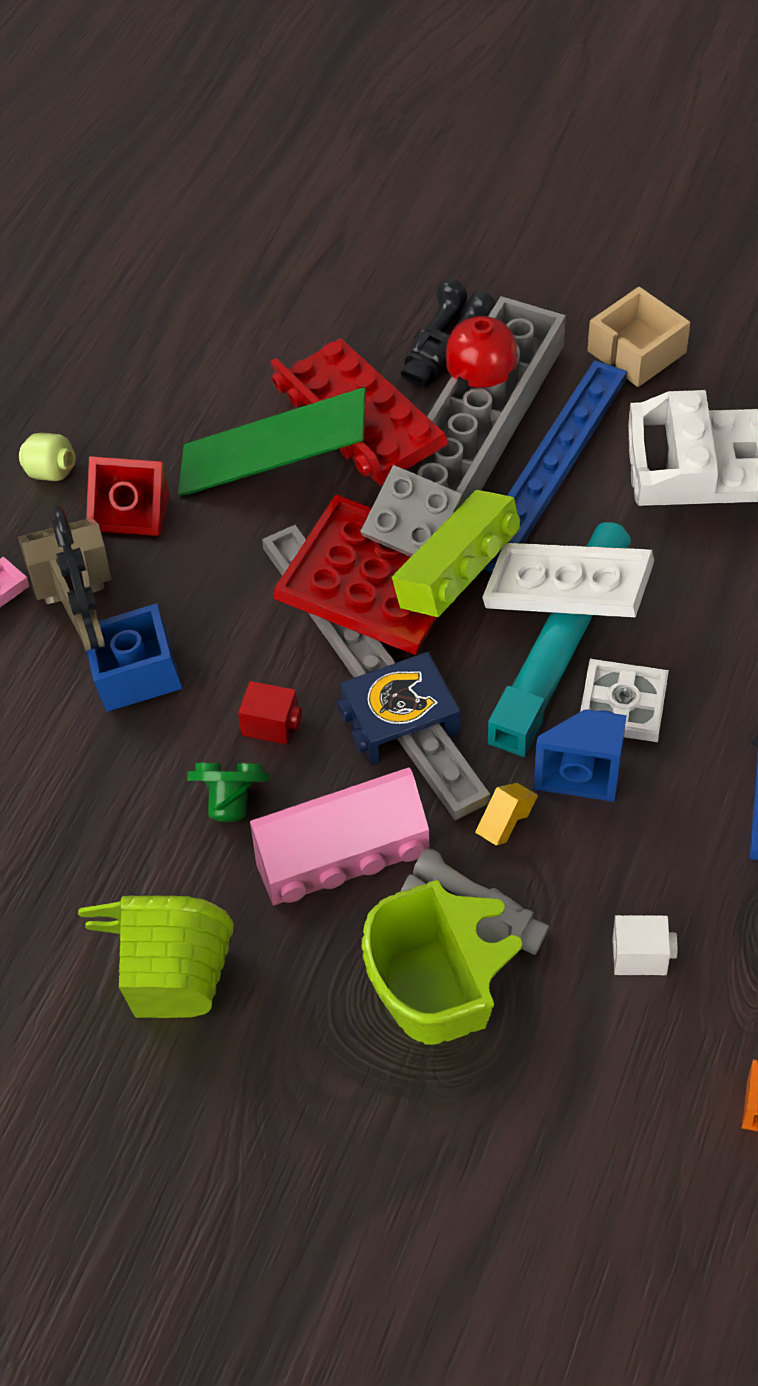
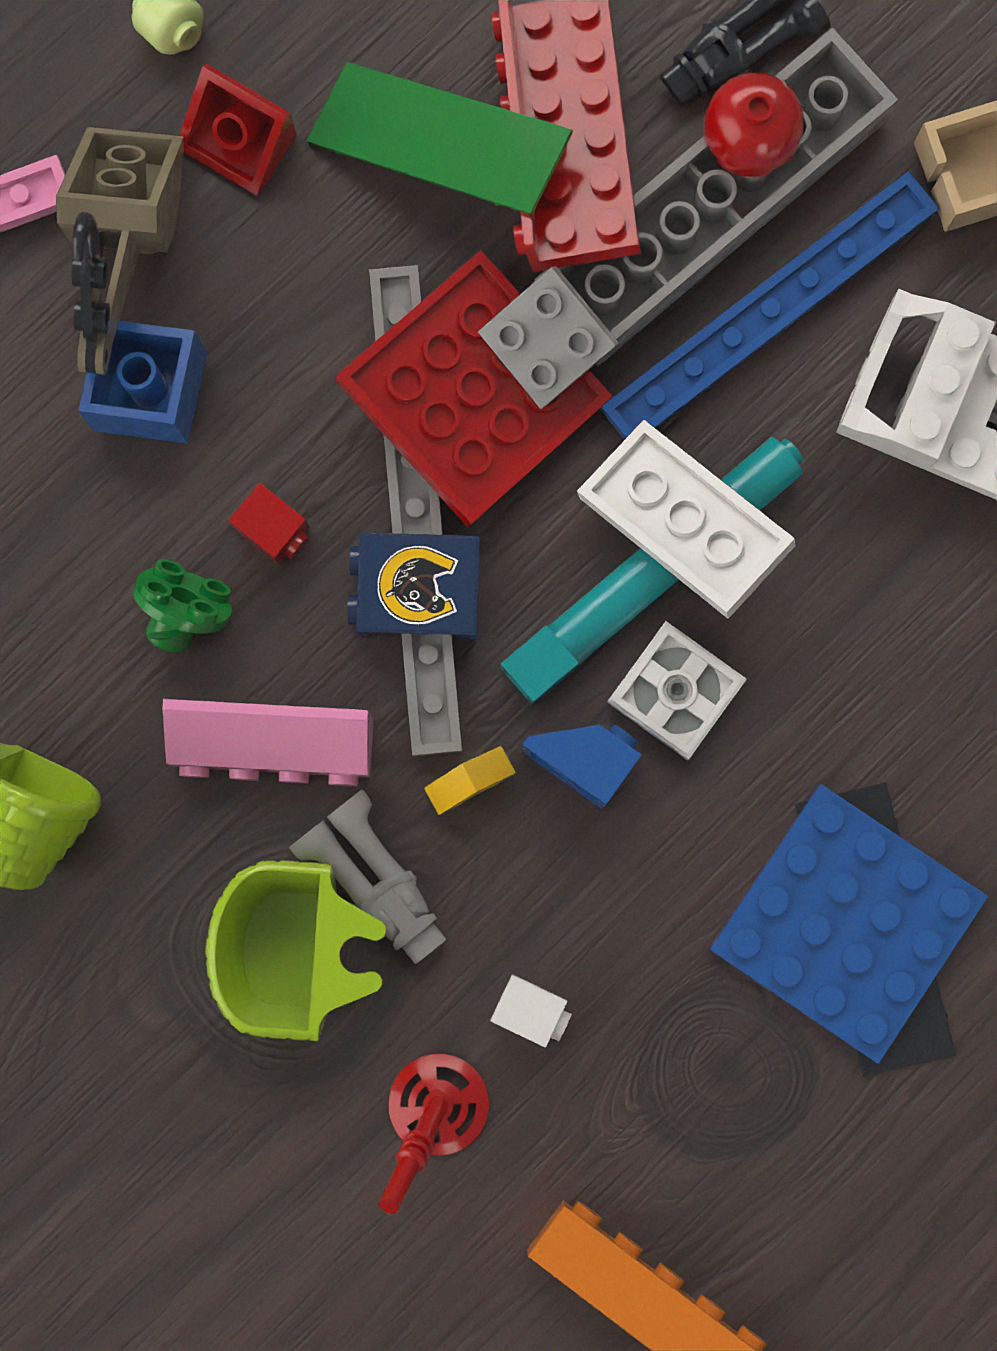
camera: 25 degrees right, 30 degrees up
(456, 553) = (574, 420): lime brick -> none
(611, 1052) = (432, 1117): none -> red dish

